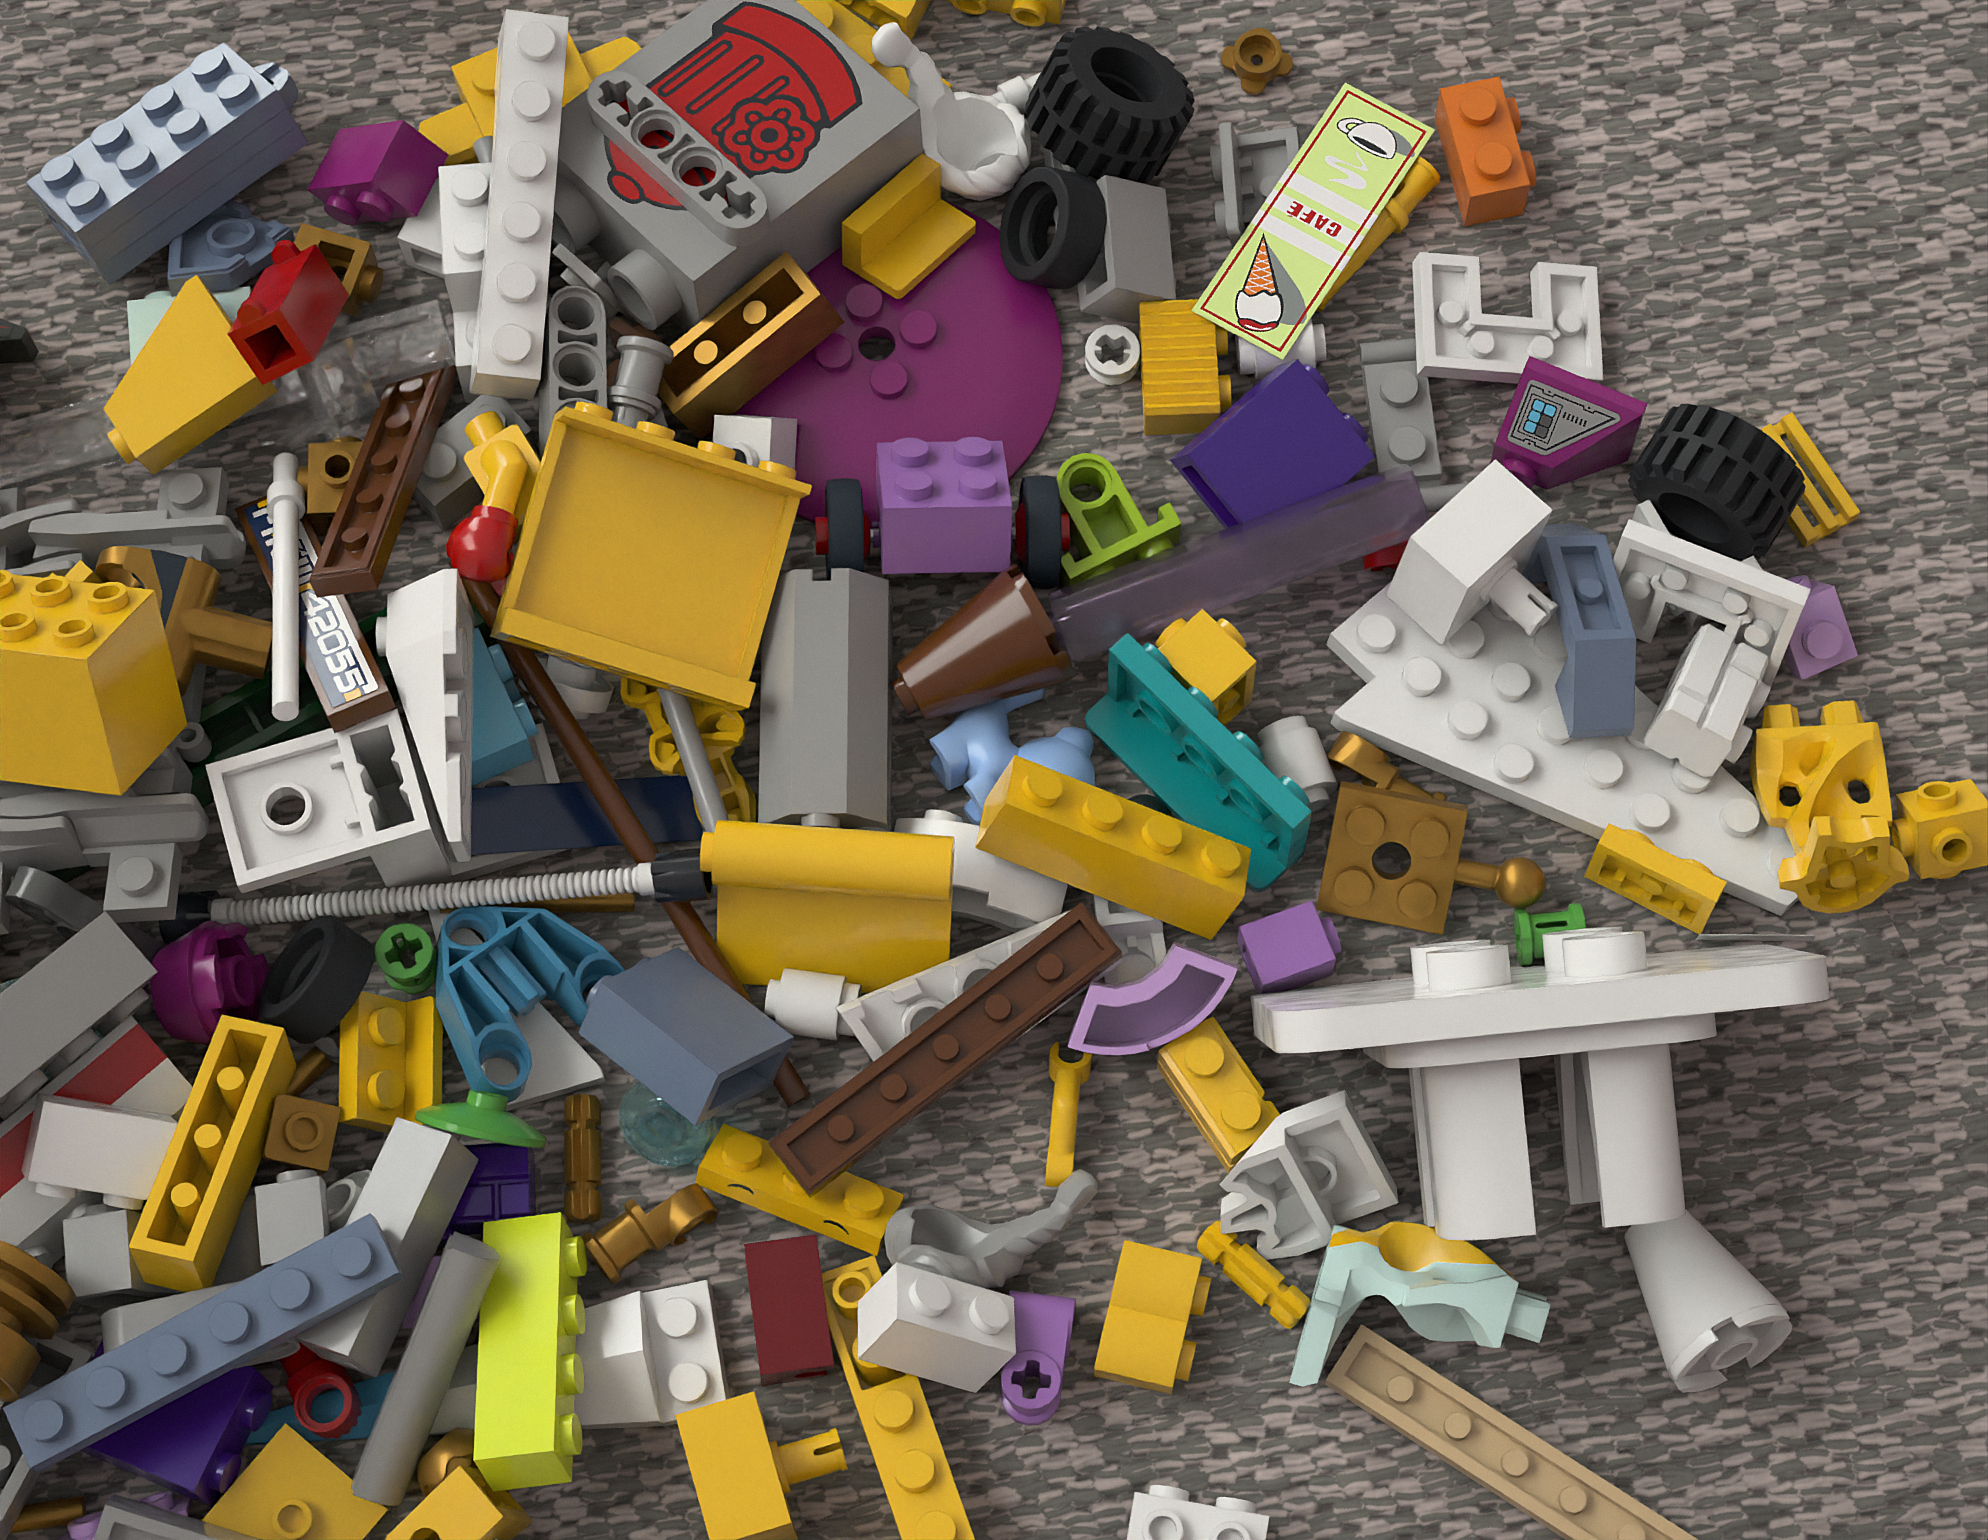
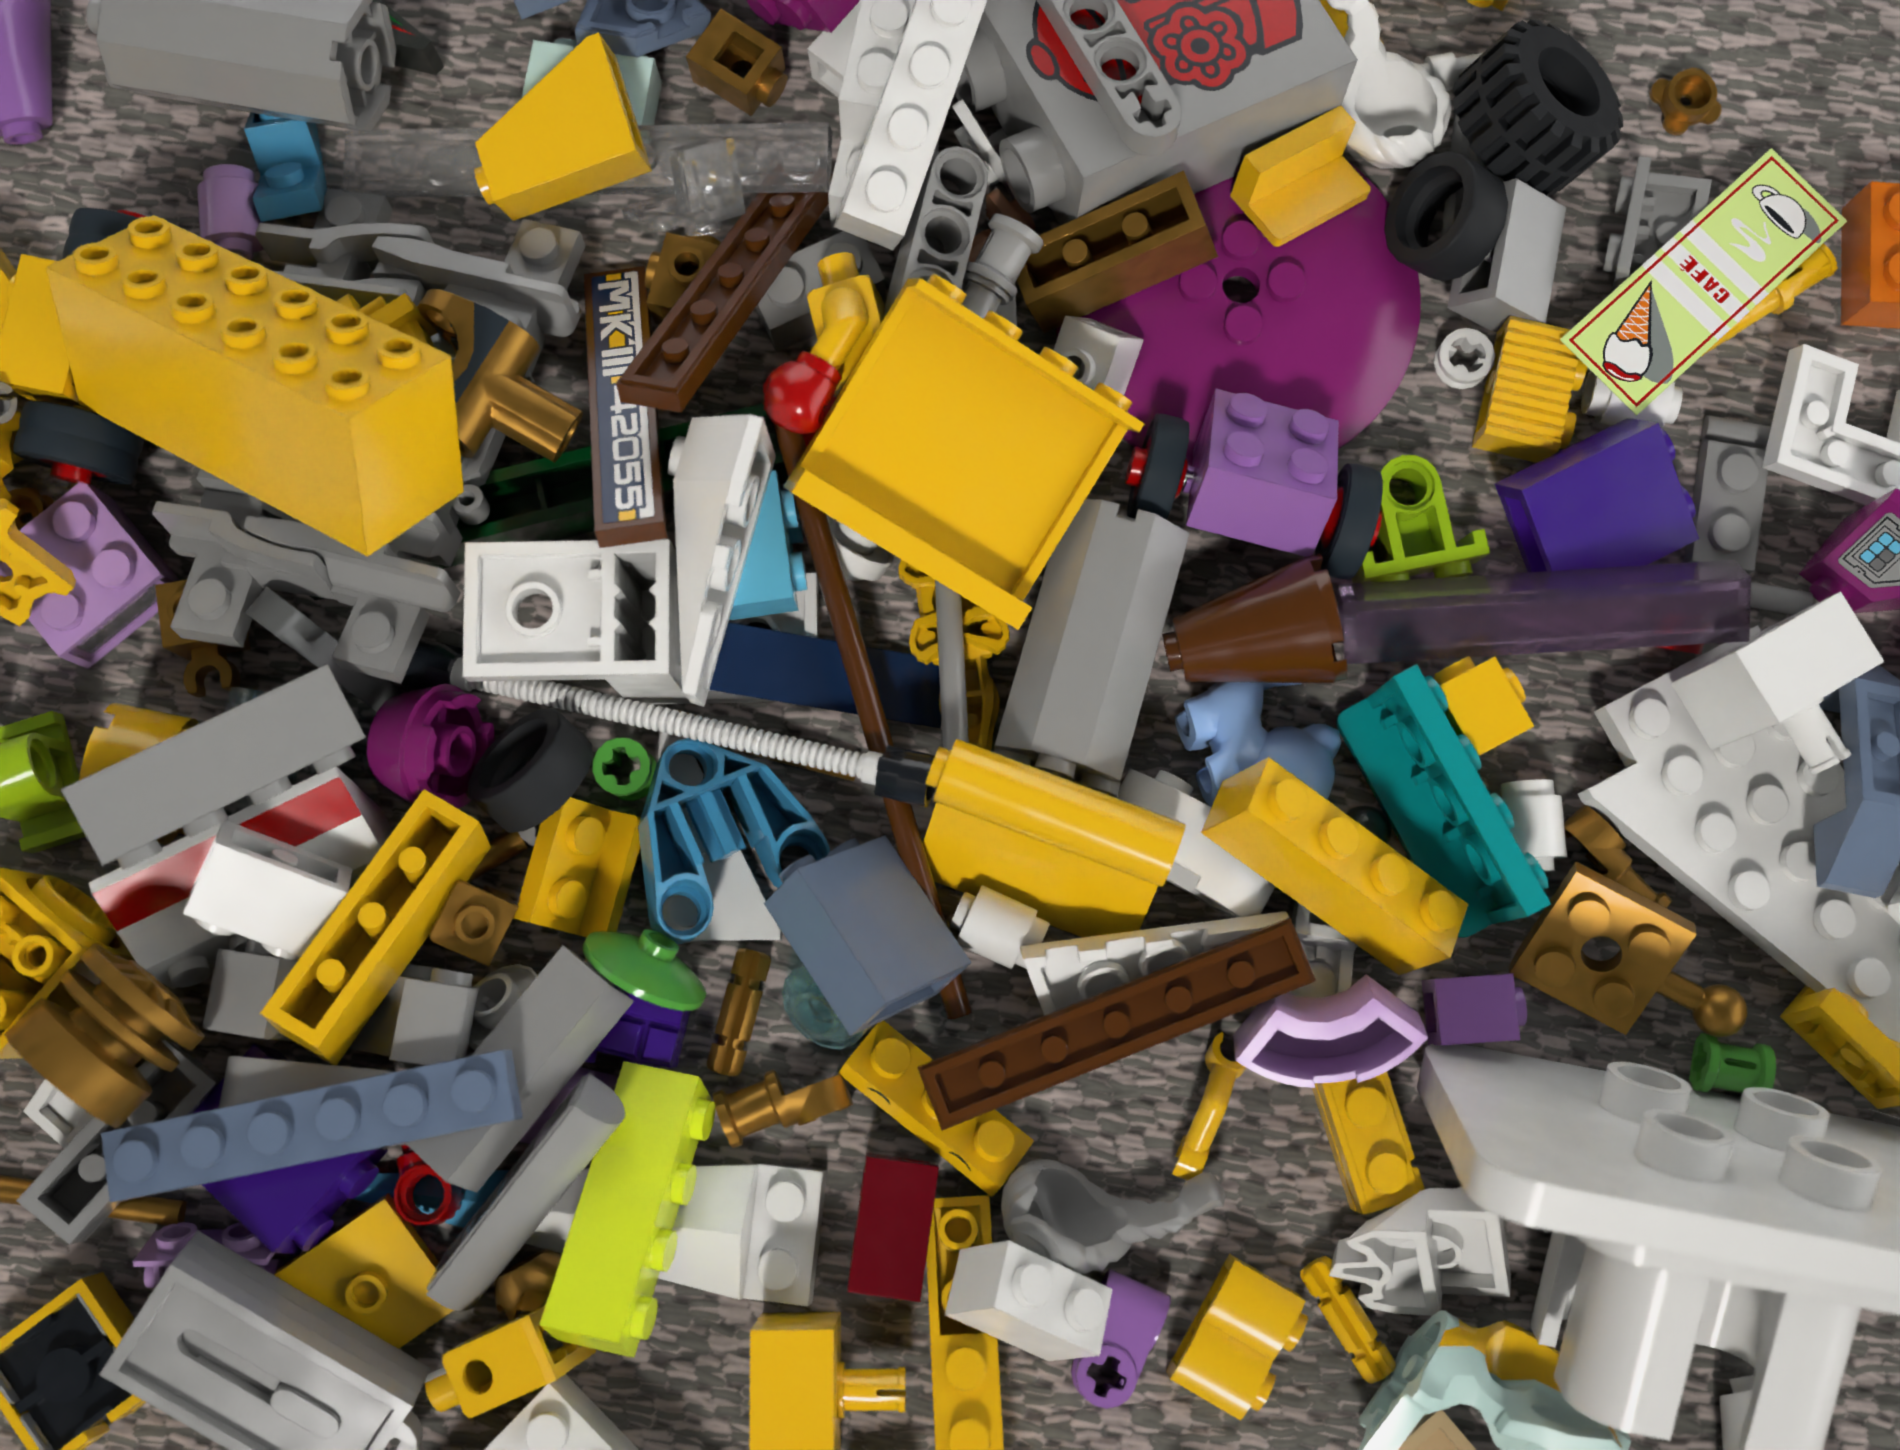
camera: 15 degrees right, 10 degrees up
(285, 508) = (628, 290): white bar -> none
(288, 312) = (677, 96): red brick -> none

